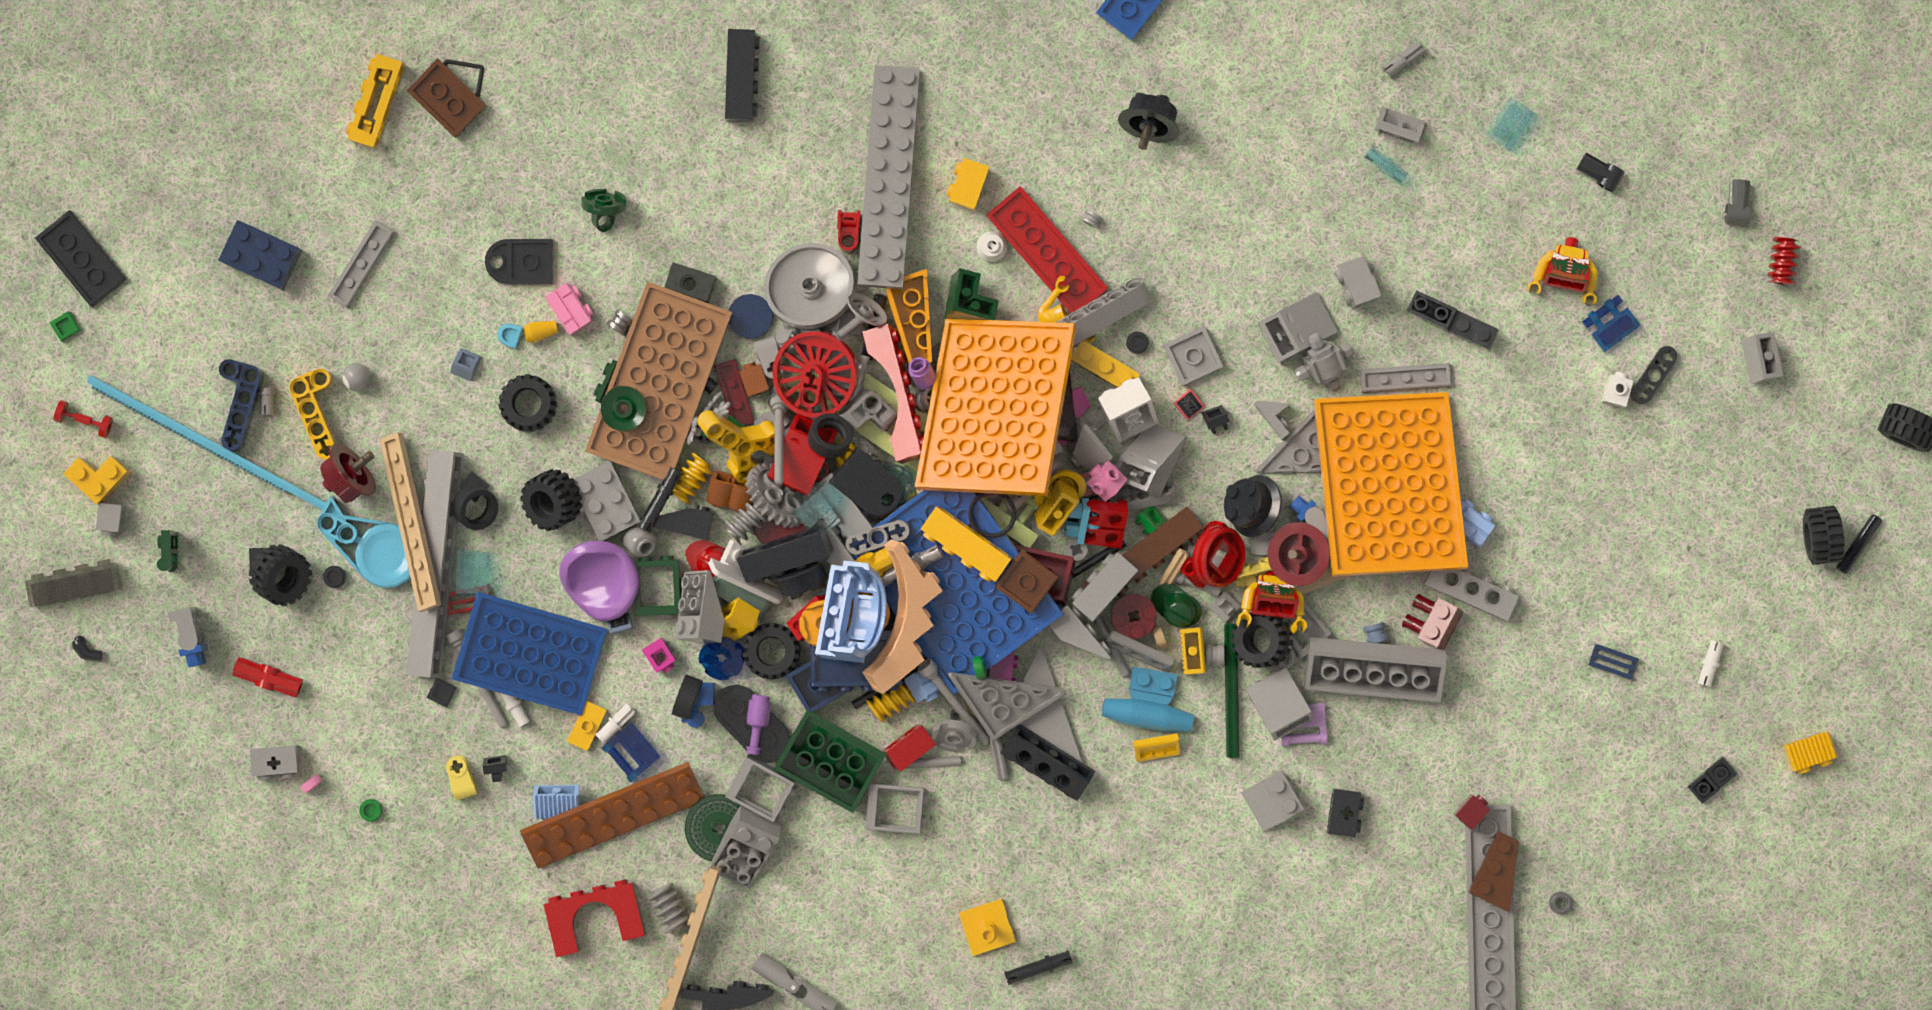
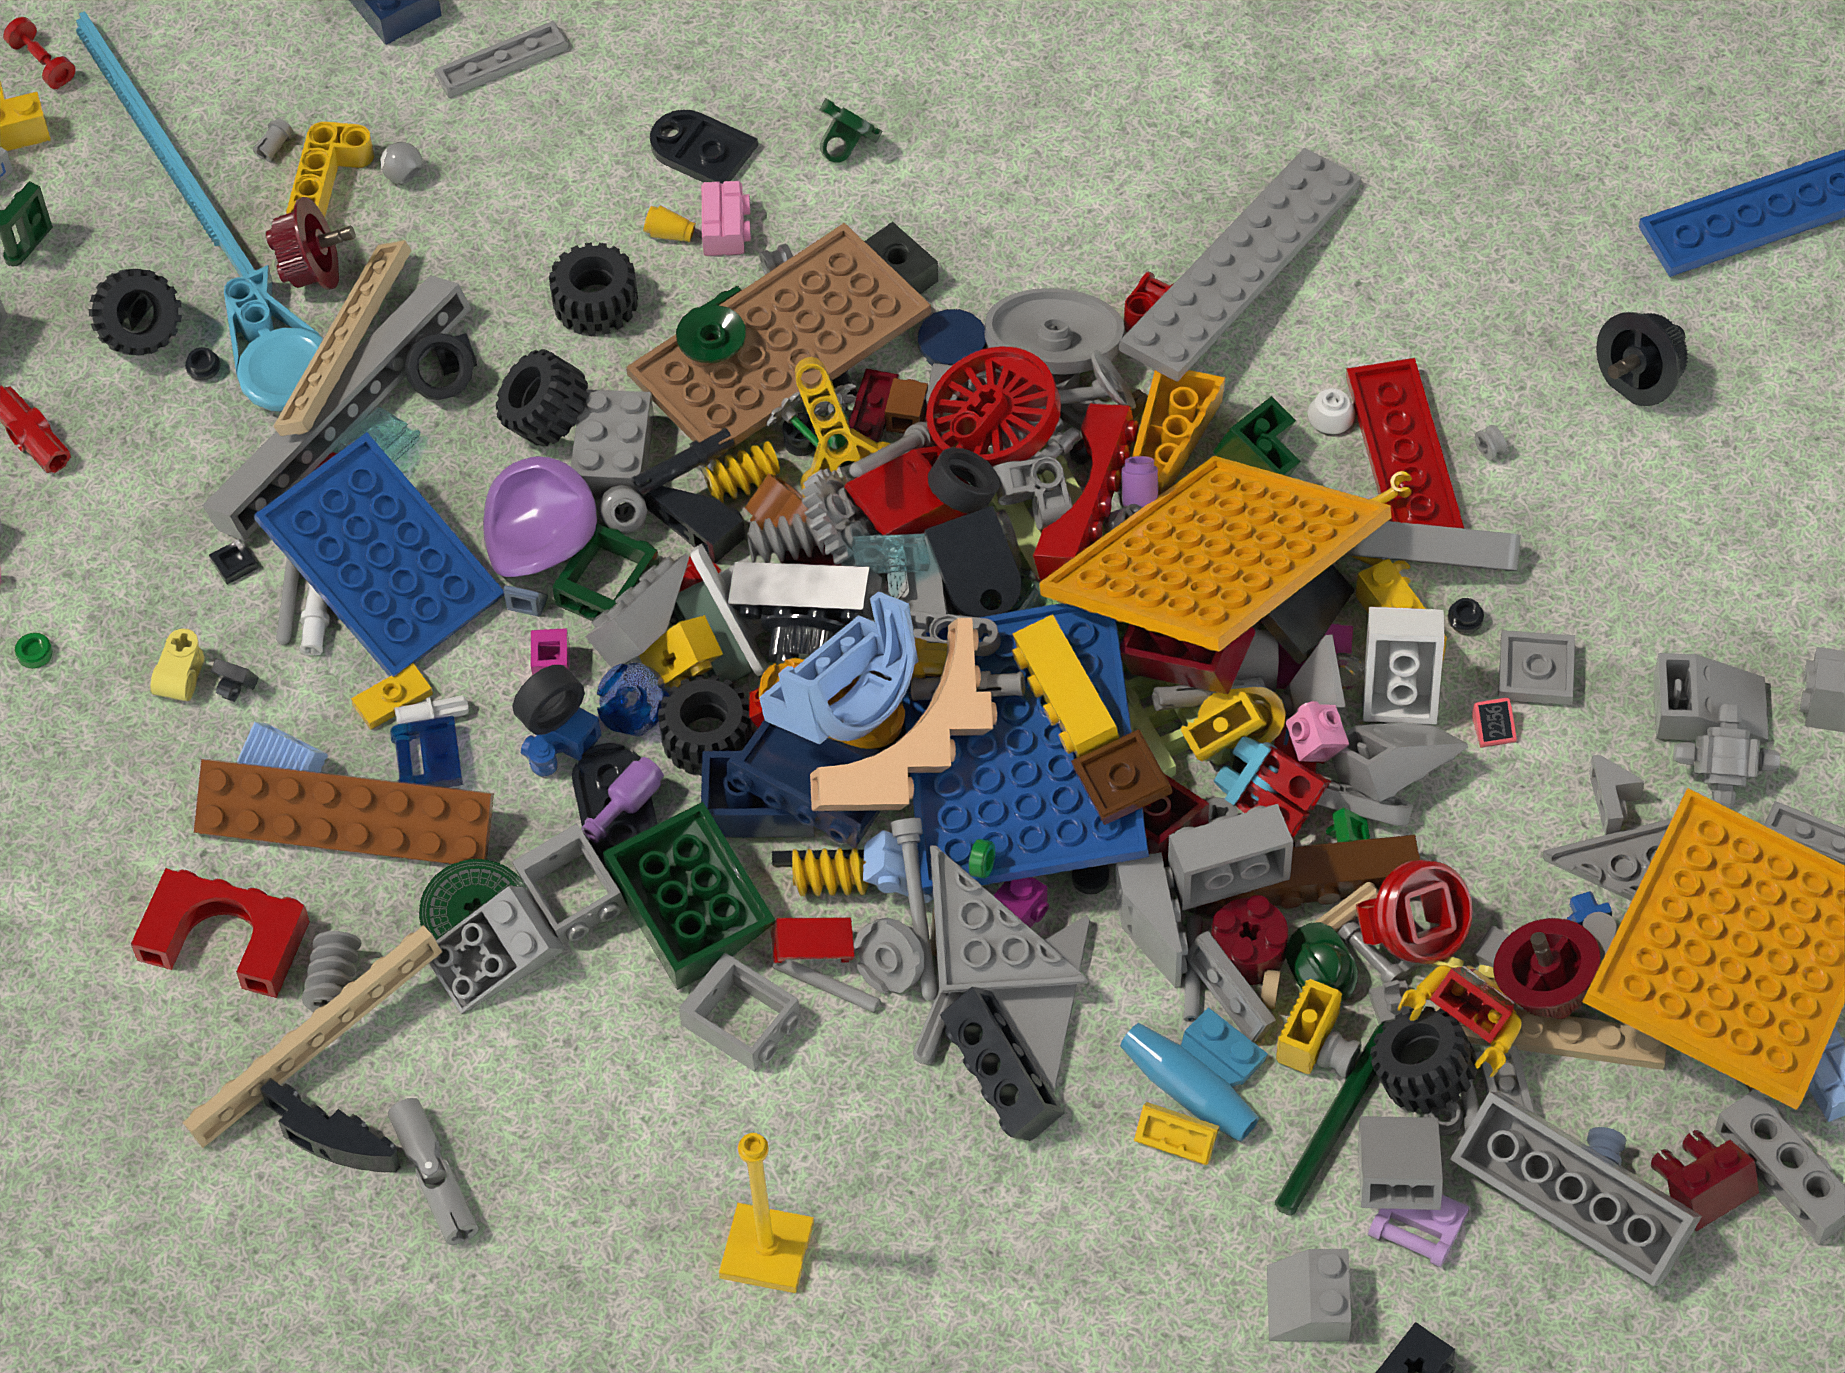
camera: 30 degrees right, 30 degrees down
(237, 406) = (239, 127): dark blue beam -> none
(465, 364) = (546, 220): sand blue slope -> none
(510, 335) = (627, 216): medium azure tile -> none
(740, 75) = (1121, 79): black brick -> none
(968, 184) = (1345, 322): yellow brick -> none
(992, 535) = (1128, 643): black tyre -> none
(1038, 967) = (822, 1345): black pin -> none
(1215, 417) = (1523, 756): black tile -> none
(1253, 505) = (1513, 876): black piece -> none

